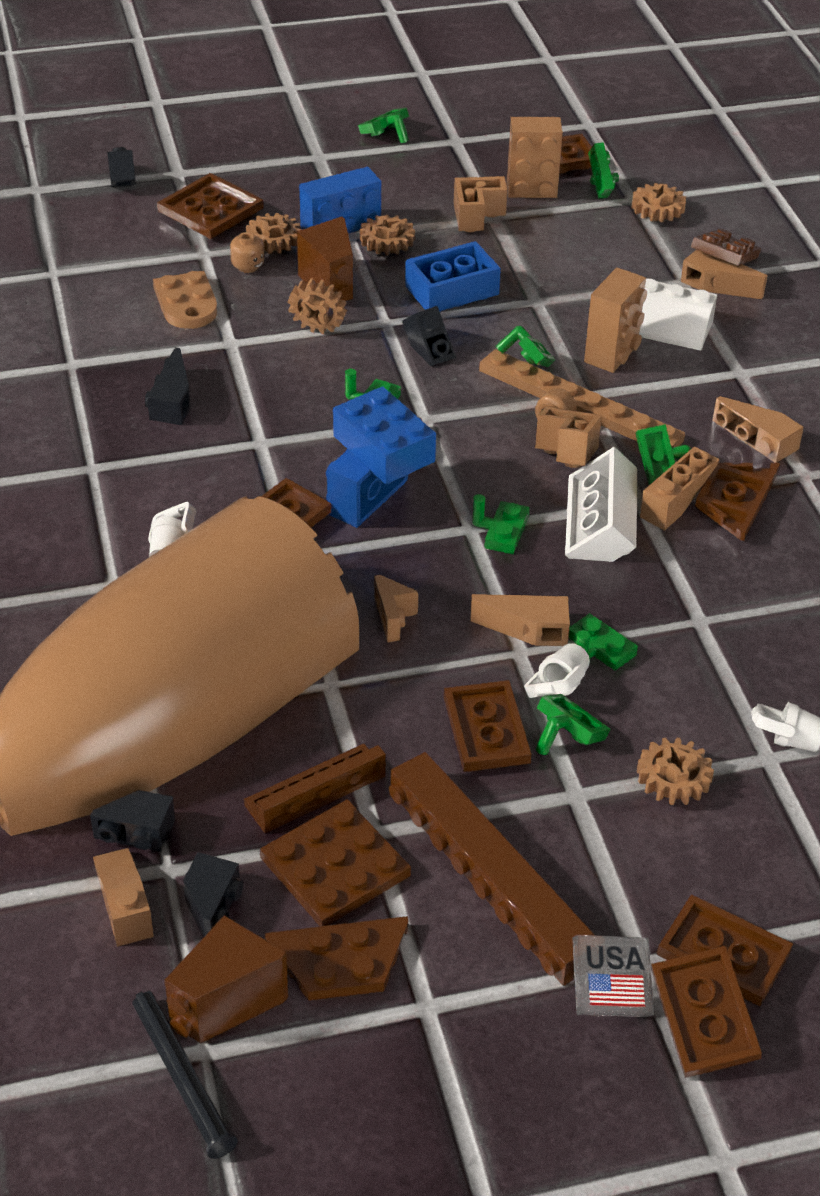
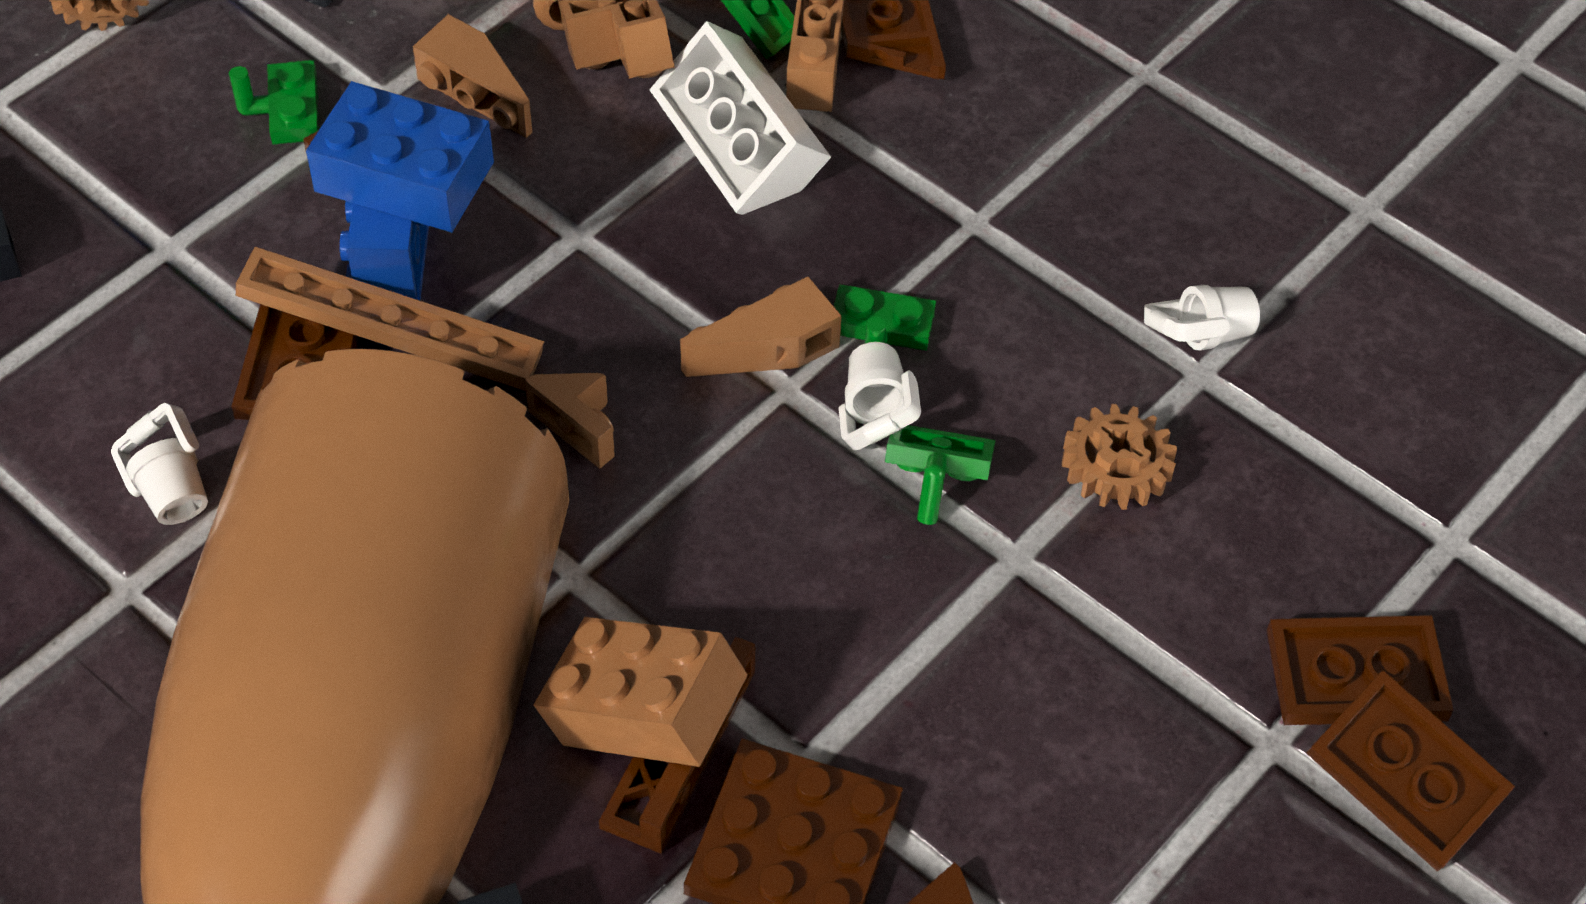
camera: 35 degrees left, 10 degrees up
(307, 742) = (641, 690): none -> medium nougat brick
(332, 517) = (389, 318): none -> medium nougat plate
(473, 419) = (469, 69): none -> medium nougat slope
(487, 726) = (837, 523): reddish brown plate -> none
(489, 863) = (1005, 724): reddish brown brick -> none
(504, 528) = (624, 207): green plate -> none
(612, 976) = (1274, 791): clear tile -> none

